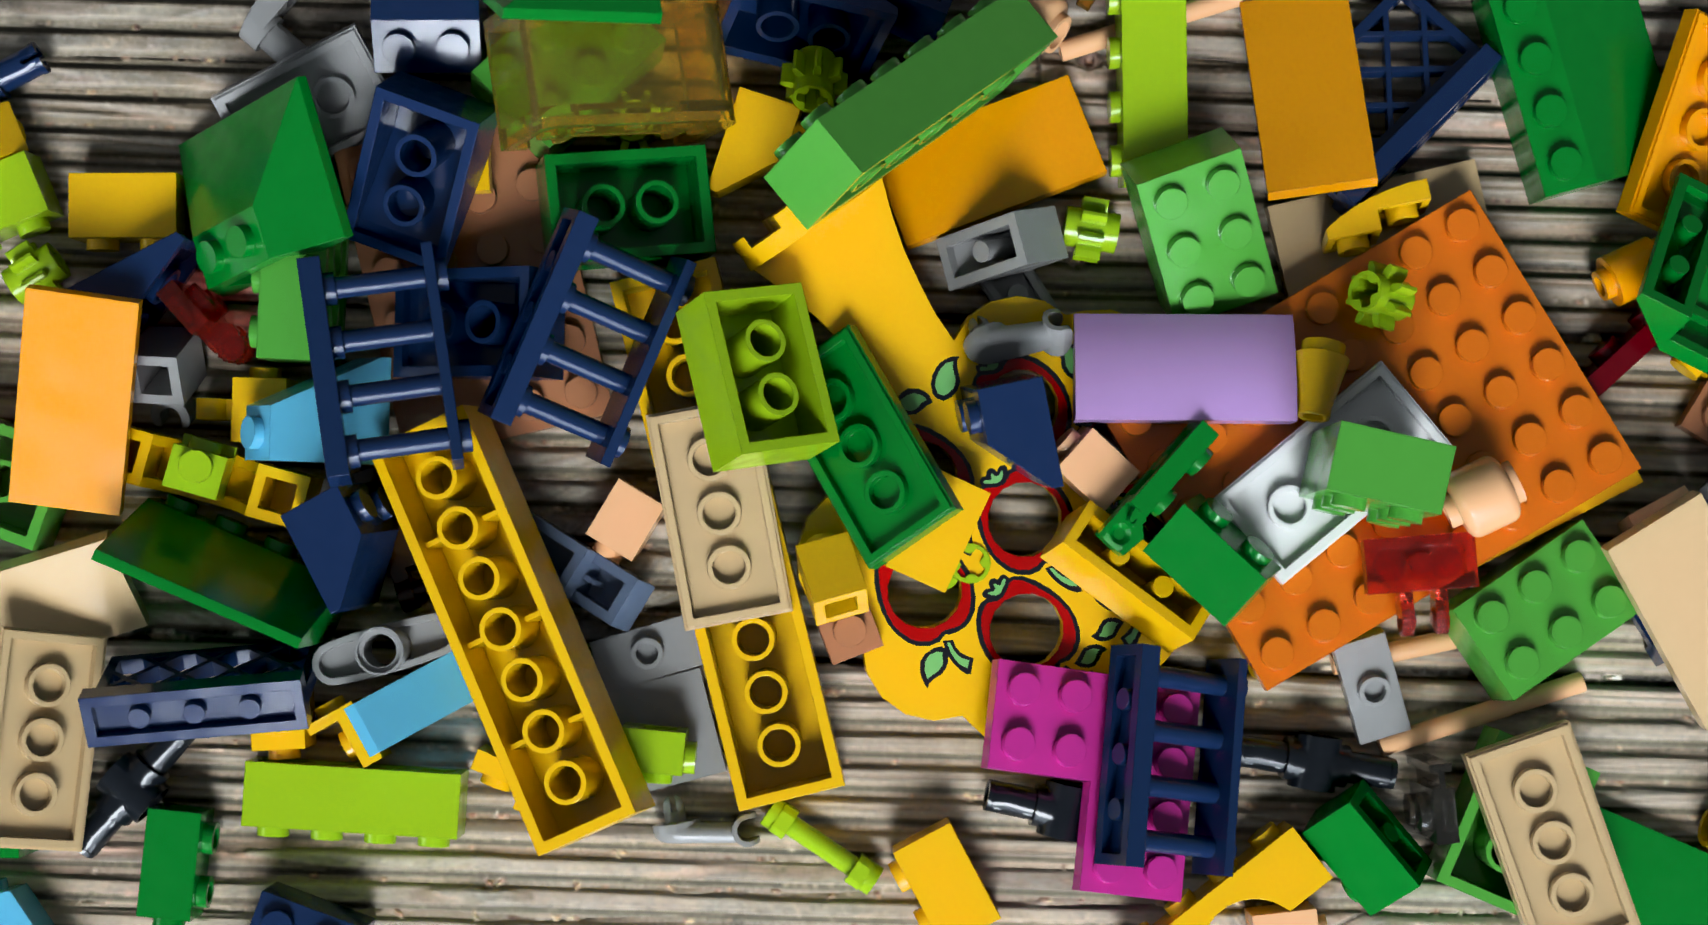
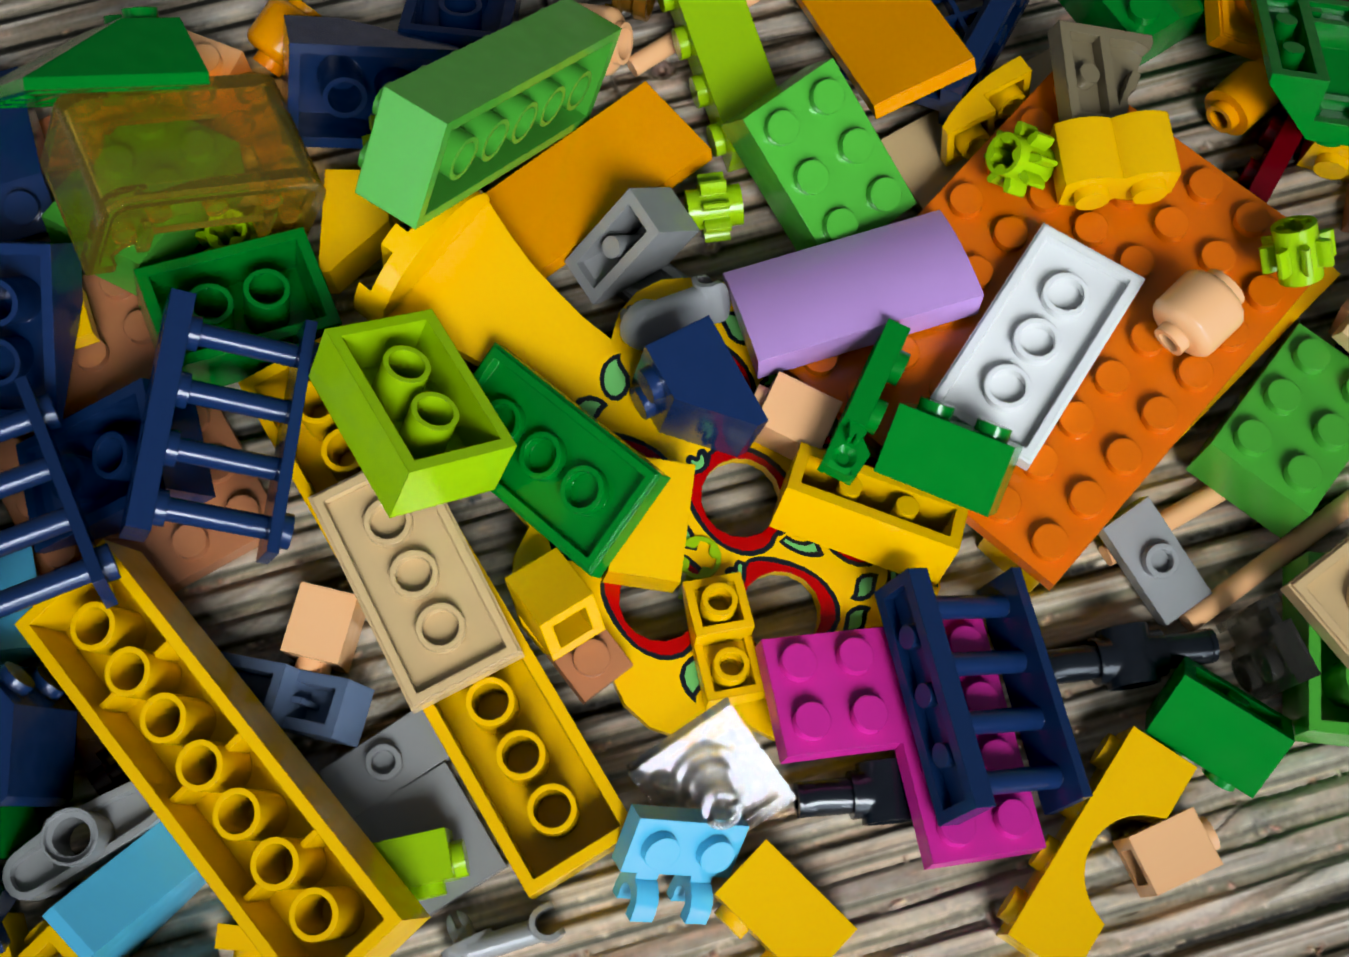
camera: 20 degrees left, 15 degrees down
(860, 871) = (584, 902): lime bar -> none
(876, 806) = (676, 844): none -> medium azure plate
(919, 759) = (714, 768): none -> clear plate
(967, 643) = (722, 639): none -> yellow slope
(1320, 372) = (990, 248): yellow cone -> none
(1376, 472) = (1089, 296): bright green brick -> none
(1420, 564) = (1162, 401): clear red hinge -> none
(1468, 322) = (1114, 158): none -> yellow brick
(1485, 228) = (1094, 68): none -> dark tan wing
(1596, 466) = (1297, 251): none -> lime gear

